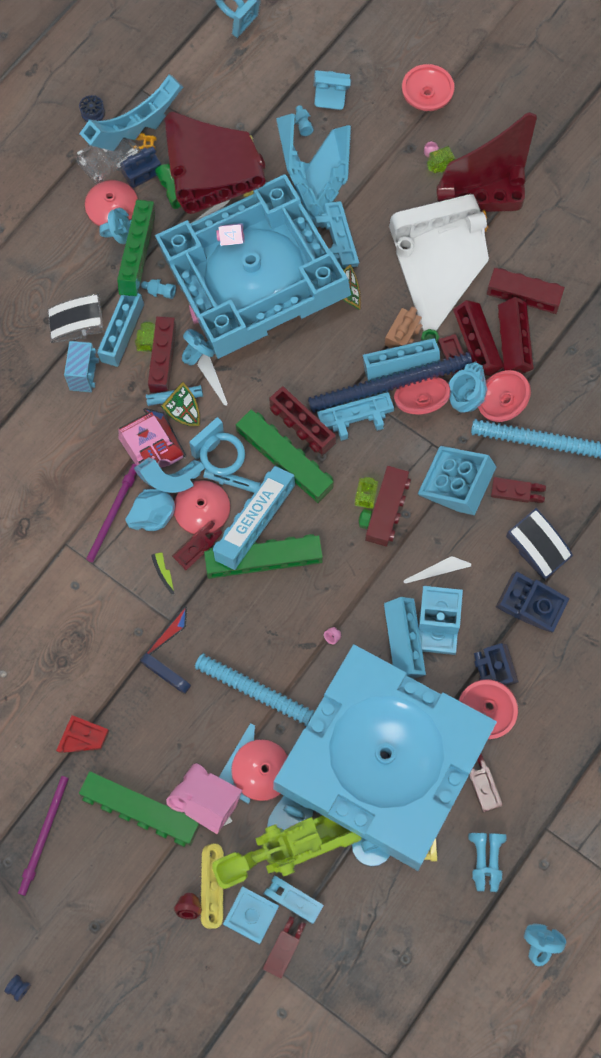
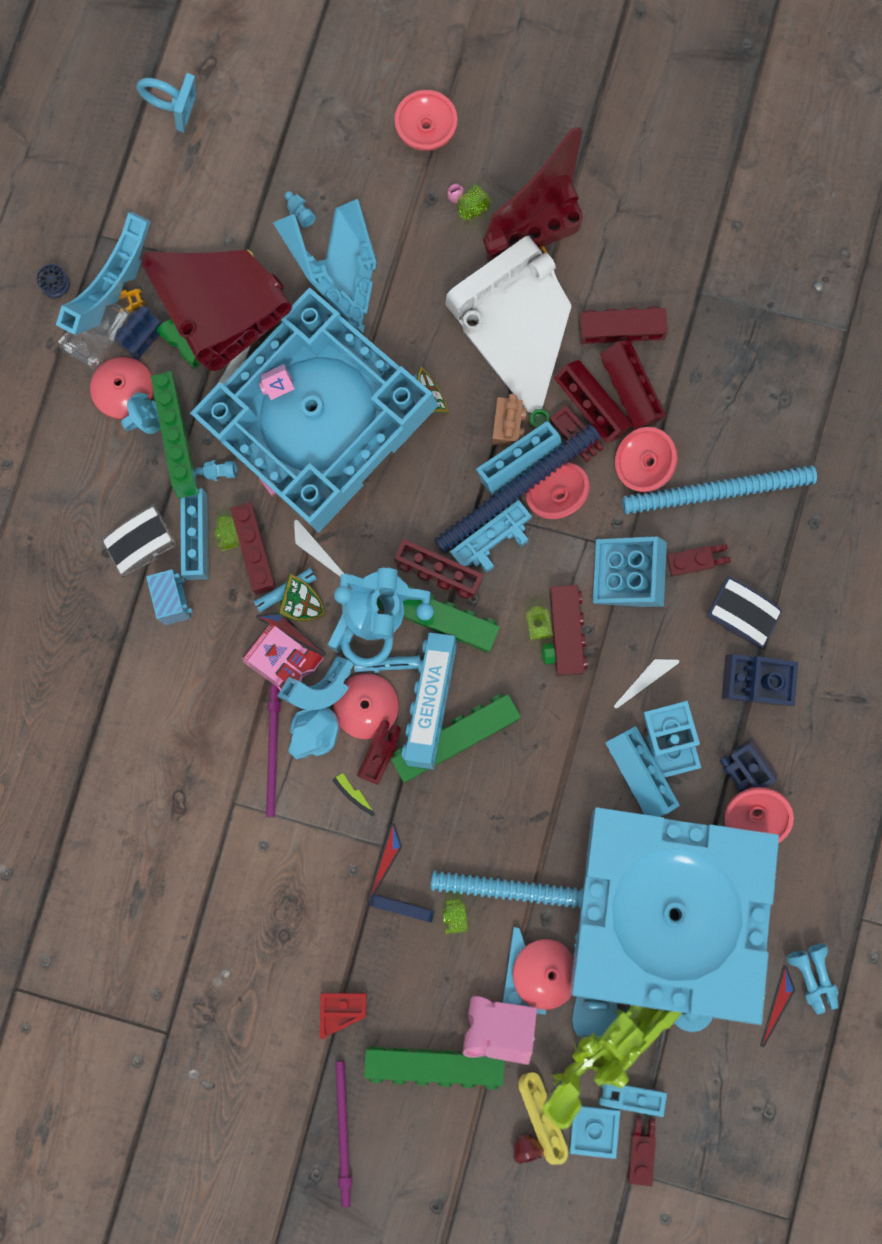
camera: 20 degrees left, 10 degrees up
(196, 347) = (288, 524): medium azure tile -> none
(205, 696) = (455, 917): none -> clear neon green brick
(253, 414) = (360, 603): none -> medium azure piece
(328, 635) = (563, 797): bright pink hinge -> none
(330, 89) = (316, 160): medium azure piece -> none
(335, 221) = (383, 319): medium azure hinge -> none
(454, 866) = (782, 997): none -> sticker
(468, 388) = (605, 465): medium azure helmet -> none
(485, 787) = (788, 905): hinge -> none

